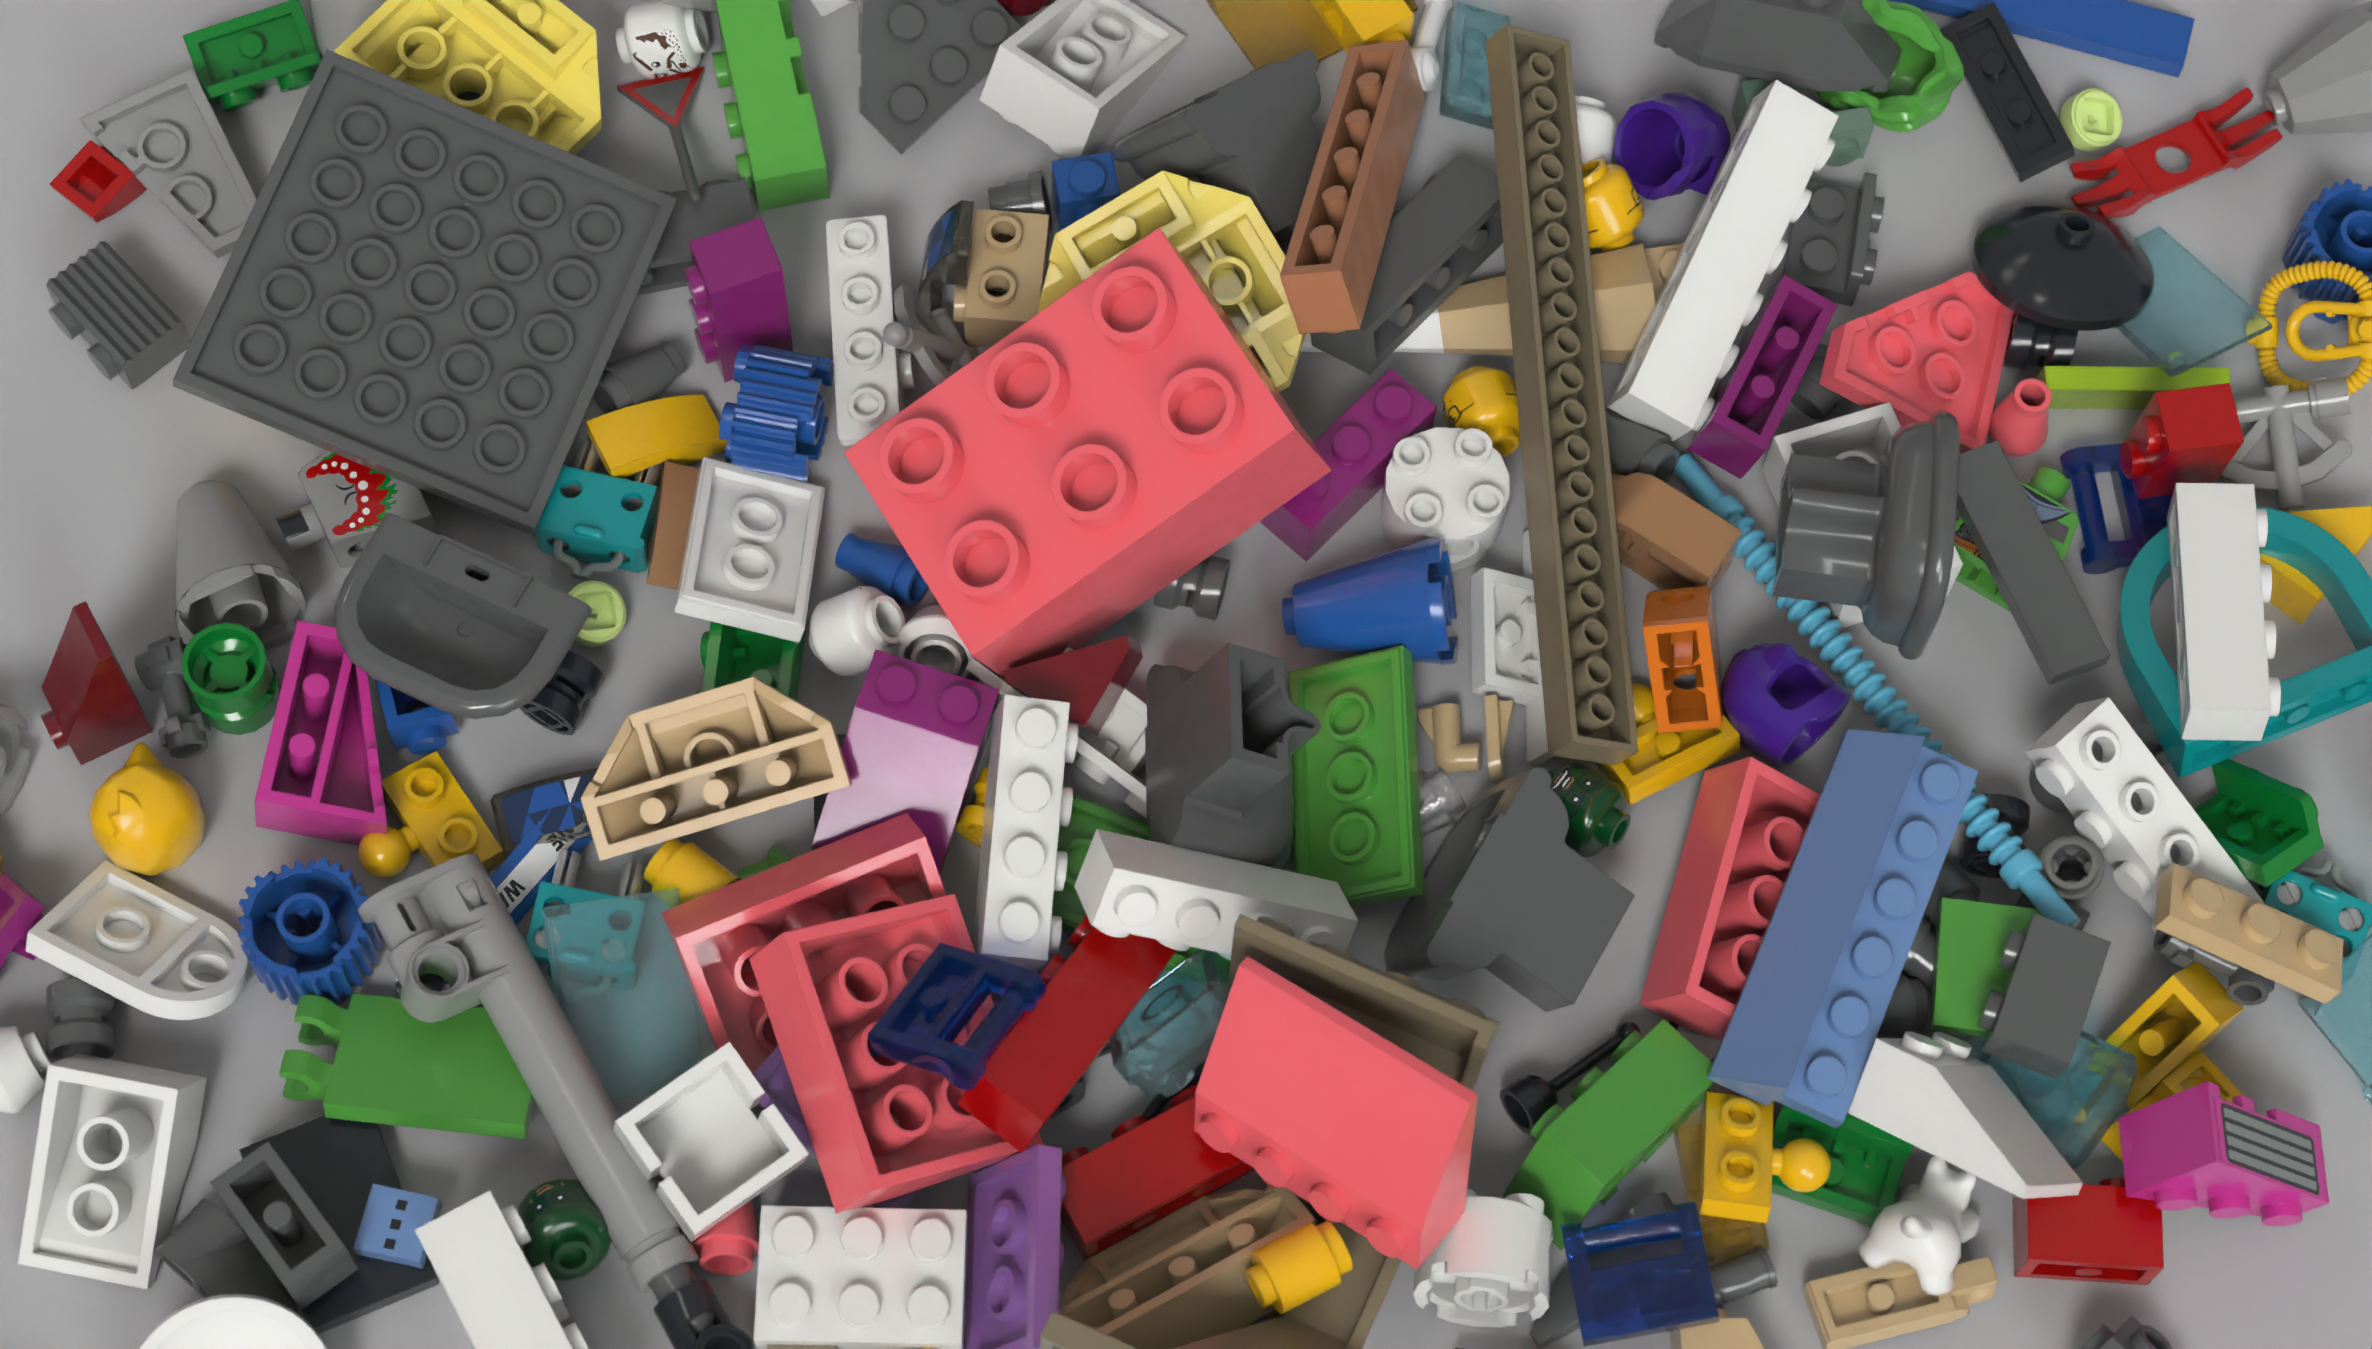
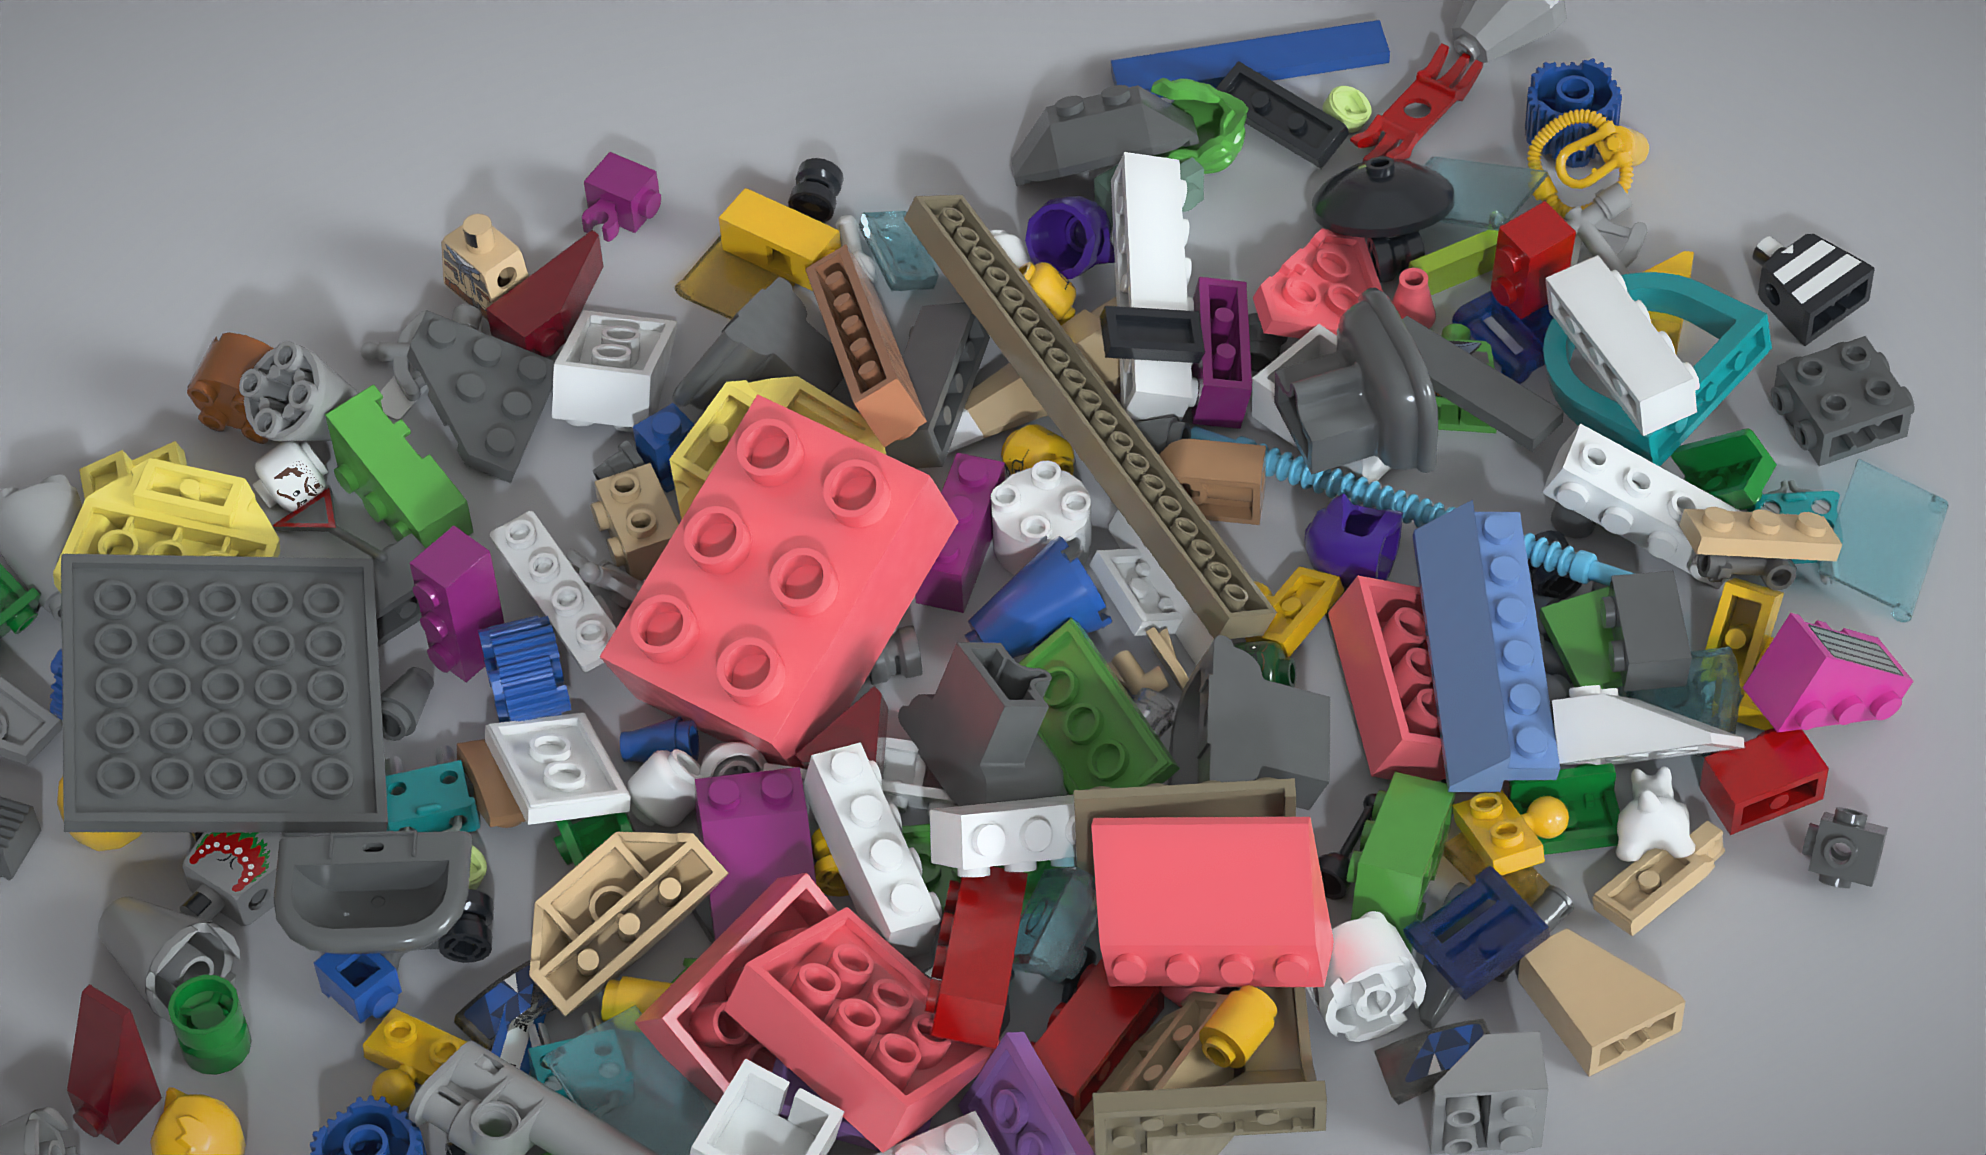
camera: 20 degrees left, 15 degrees down
(162, 669) = (188, 1078): dark grey bar -> none
(322, 746) = (308, 1035): dark pink wedge -> none
(654, 432) = (437, 730): yellow slope -> none
(942, 1001) = (884, 963): clear blue plate -> none
(946, 254) = (590, 514): clear smoke slope -> none
(1679, 642) = (1270, 536): orange torso -> none
(1683, 331) = (1152, 334): none -> black tile
(1831, 239) = (1218, 248): dark grey bracket -> none
(2077, 854) = (1618, 549): dark grey cone -> none

